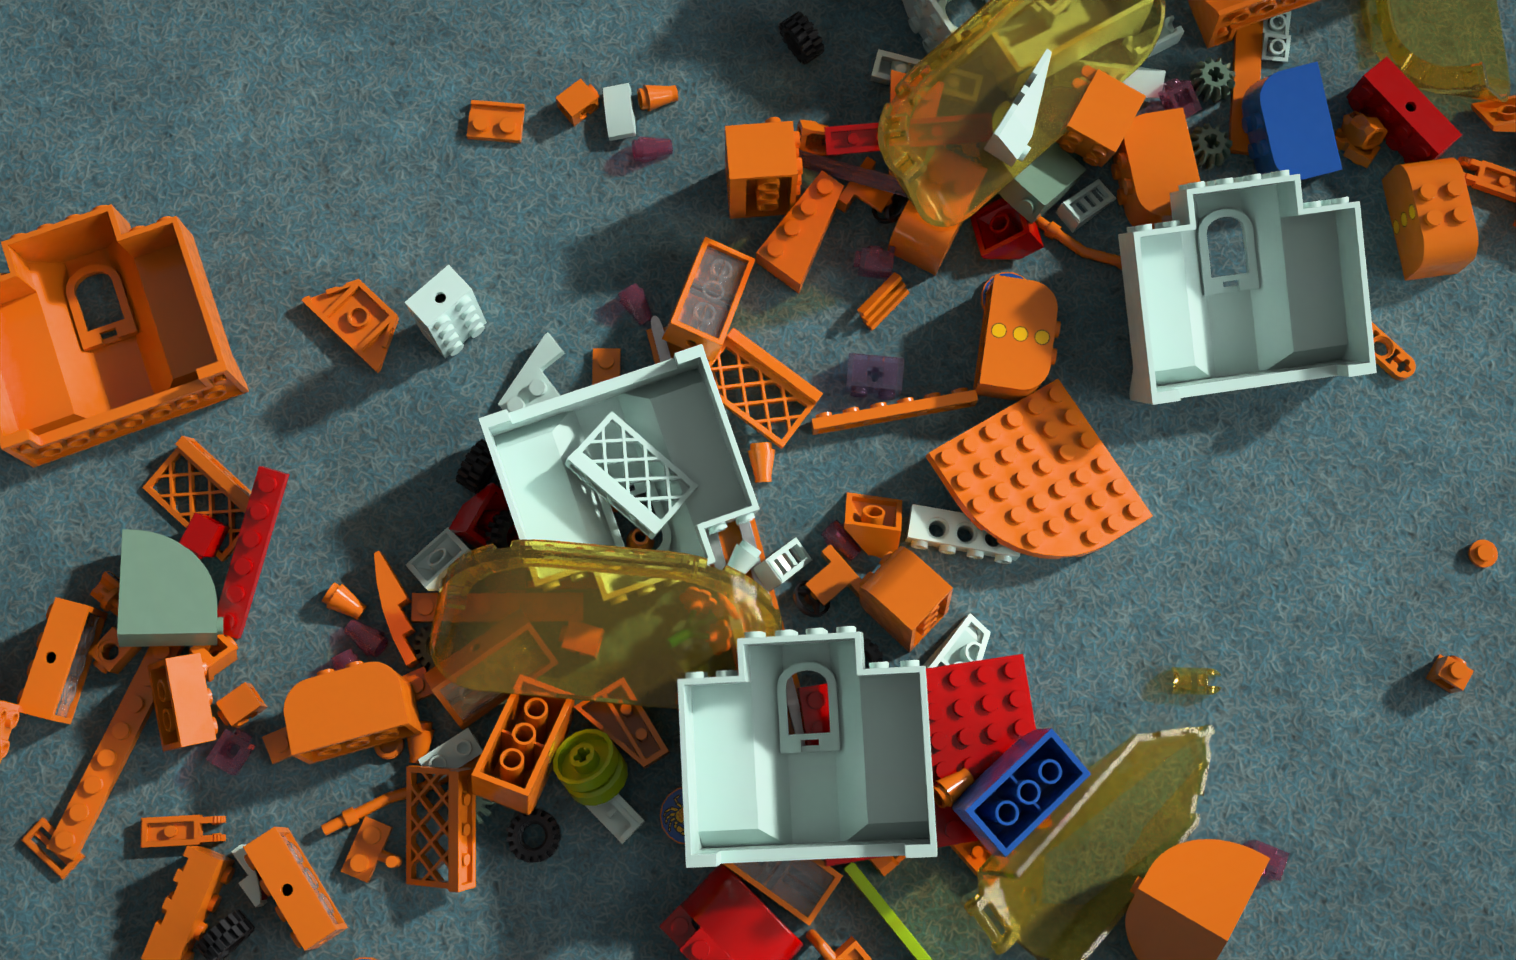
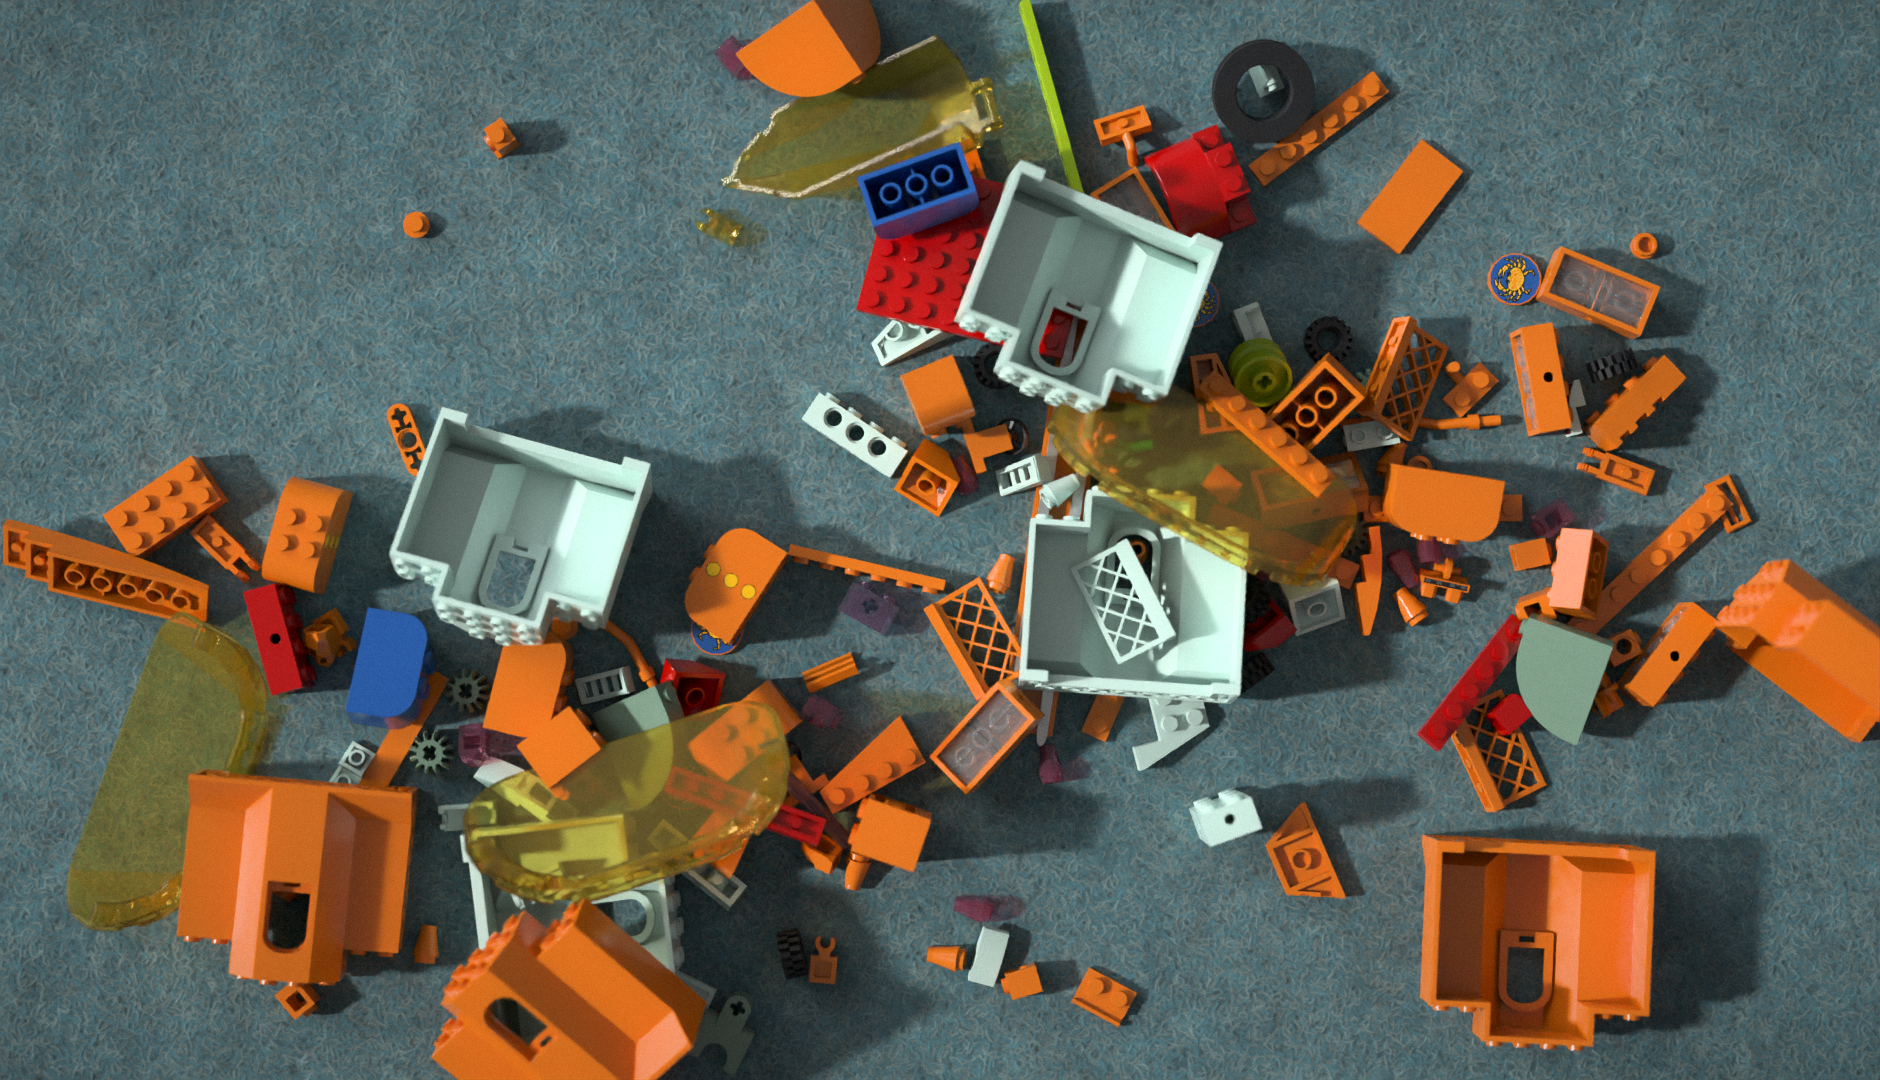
camera: 150 degrees left, 10 degrees up
(321, 643) = (1445, 577): none -> orange hips
(558, 697) = (1265, 433): none -> orange plate
(768, 43) = (823, 966): none -> orange plate
(951, 787) = (973, 222): orange cone -> none
(1017, 126) = (648, 765): light aqua wedge -> none
(1040, 479) = (768, 452): orange plate -> none

